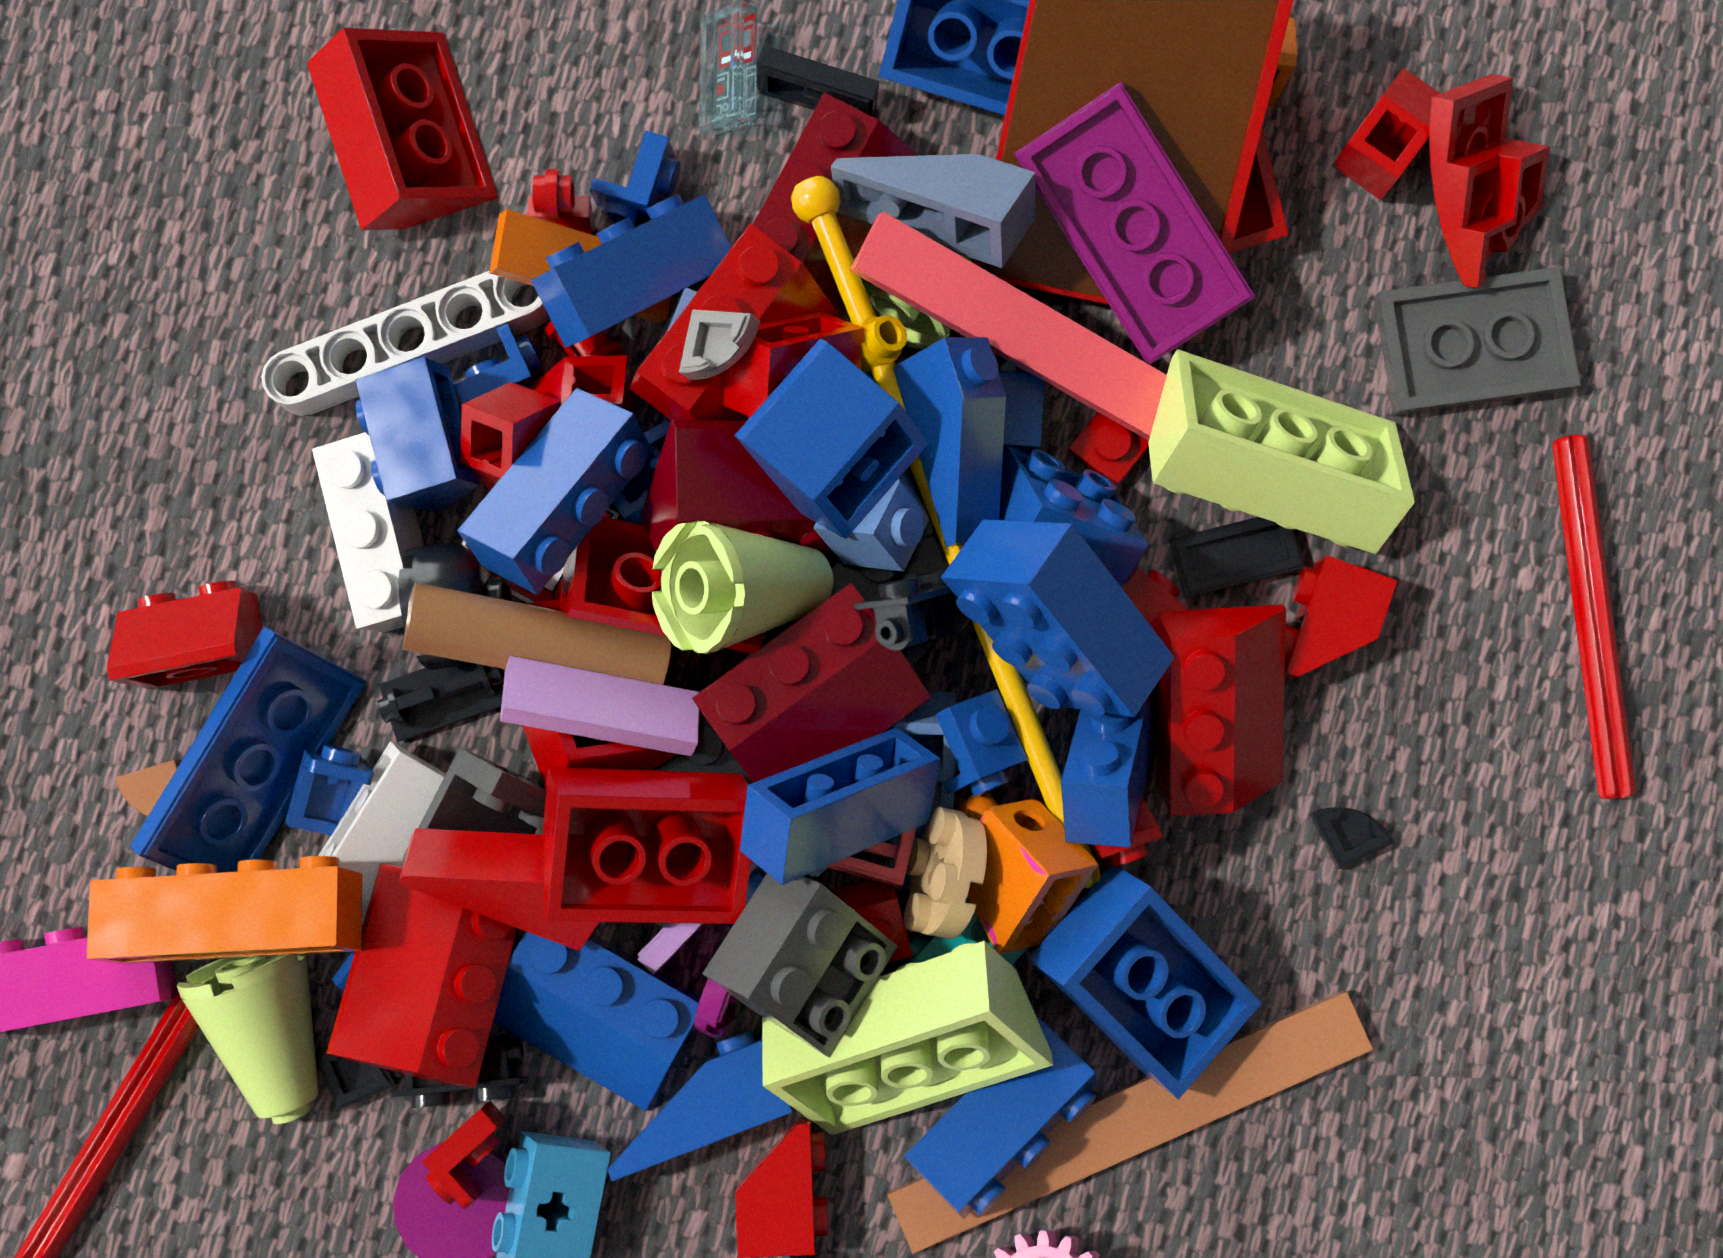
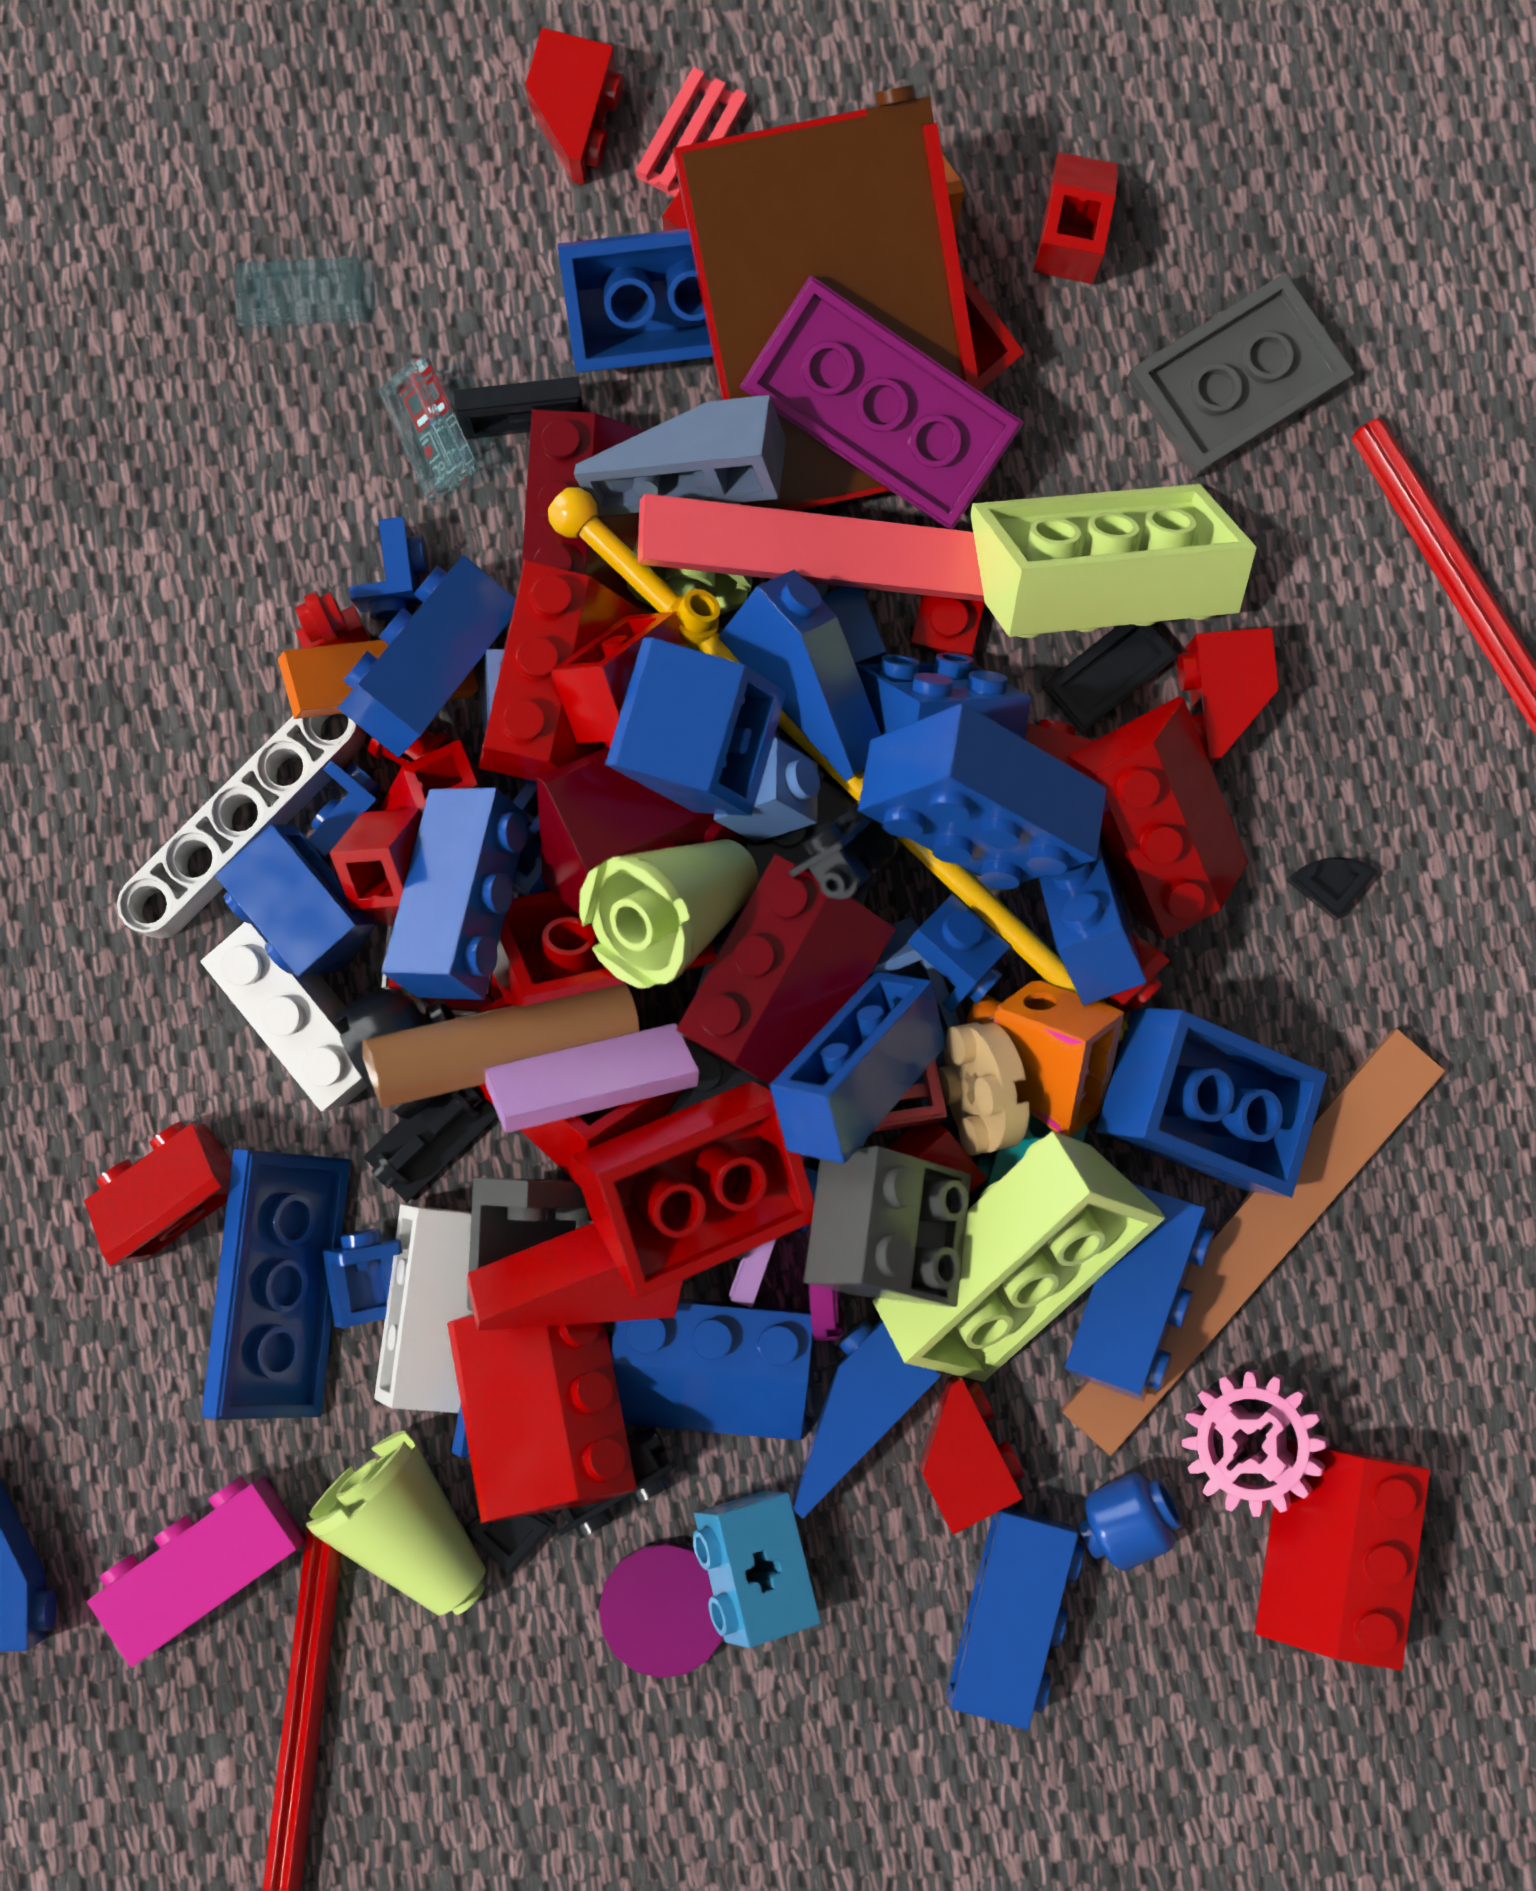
camera: 30 degrees left, 0 degrees up
(146, 785) = (188, 1353): nougat tile -> none
(225, 913) = (323, 1436): orange brick -> none
(400, 126) = (139, 620): red slope -> none
(471, 1143) = (652, 1545): red bracket -> none
(716, 342) = (547, 684): light grey tile -> none
(1480, 178) = (1178, 222): red slope -> none

